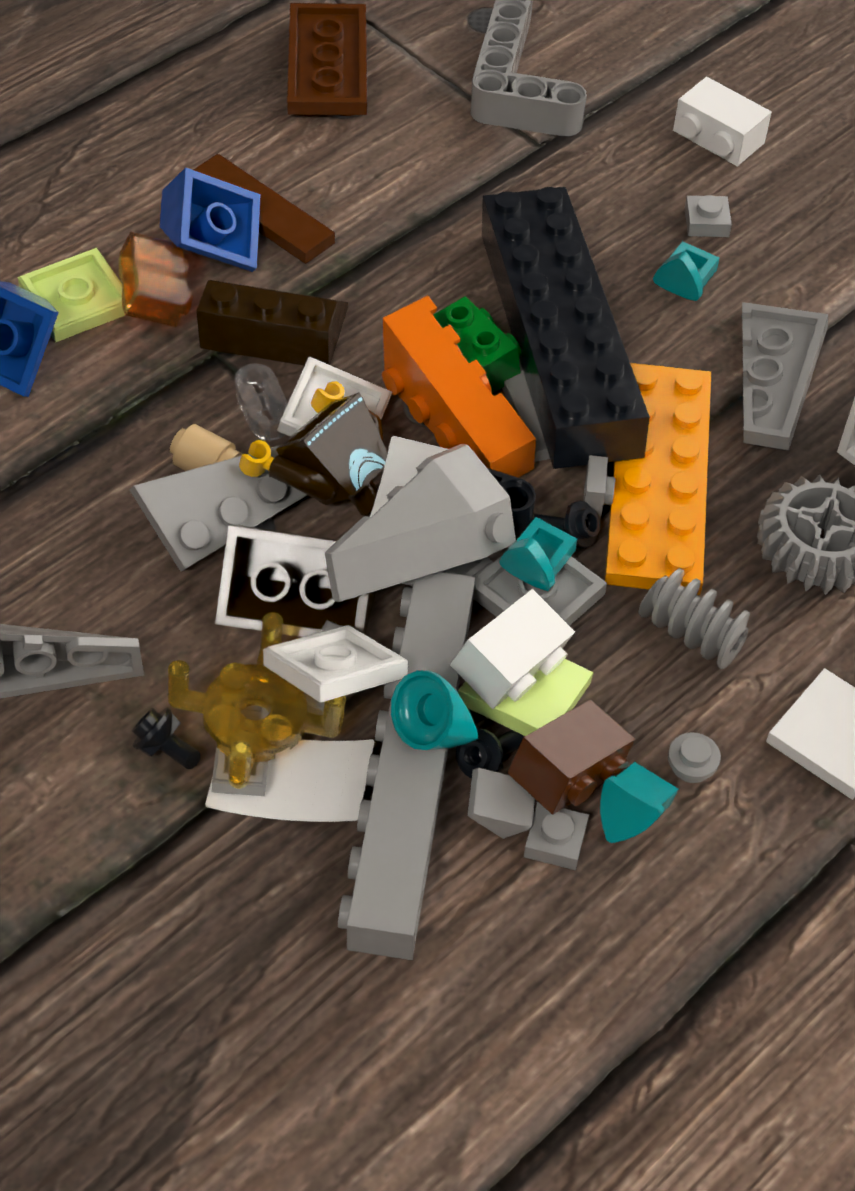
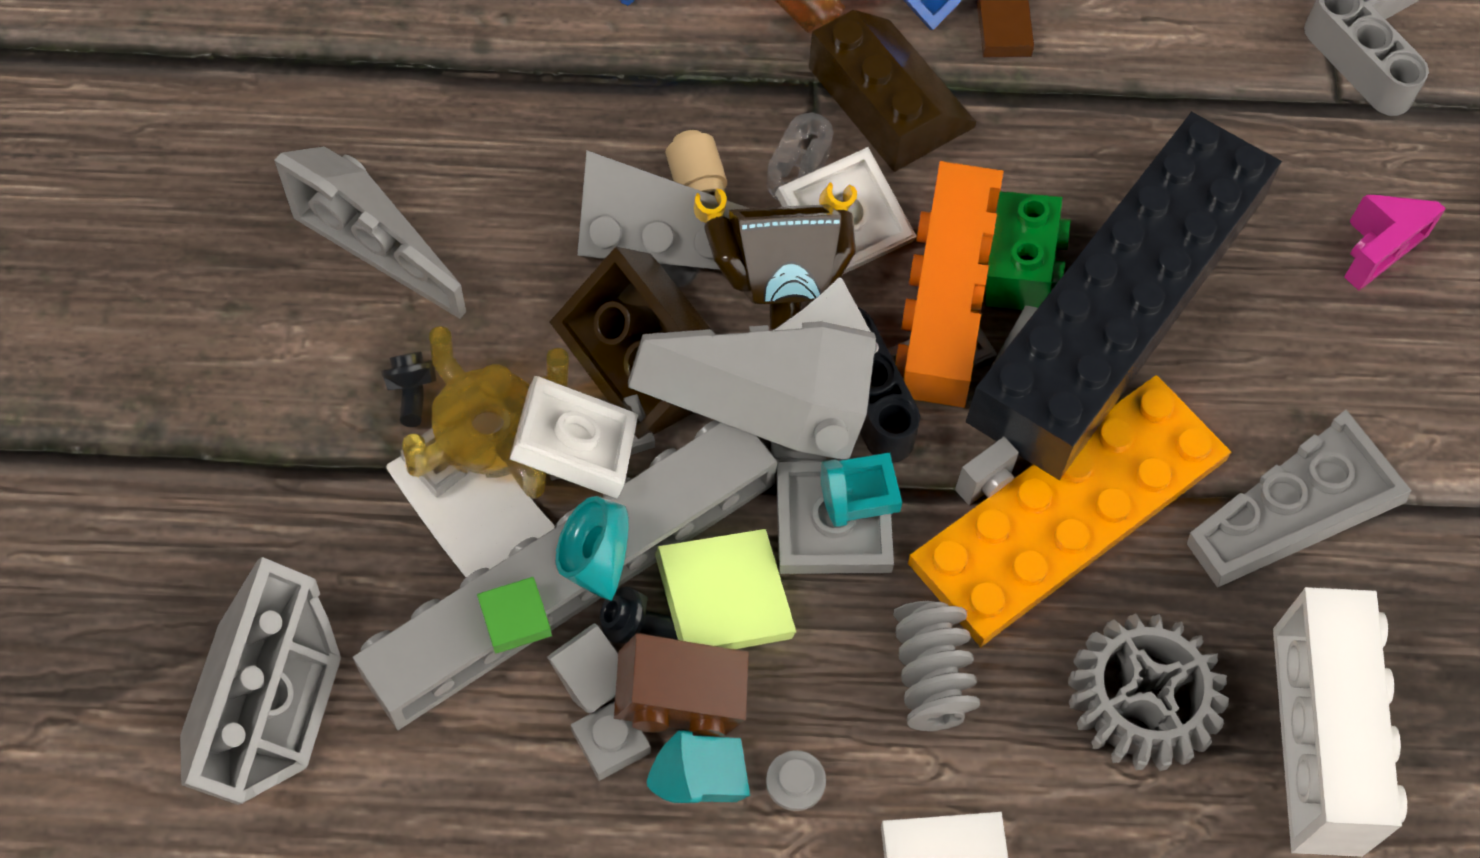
camera: 45 degrees right, 10 degrees up
(295, 1007) = (260, 688): none -> light grey wedge
(427, 801) = (514, 615): none -> bright green tile
(512, 649) = (728, 552): white brick -> none
(580, 522) = (936, 490): black plate -> none
(654, 189) = (1389, 231): none -> dark pink slope
(686, 271) = (1332, 336): teal tile -> none
(708, 216) = (1421, 297): light grey plate -> none

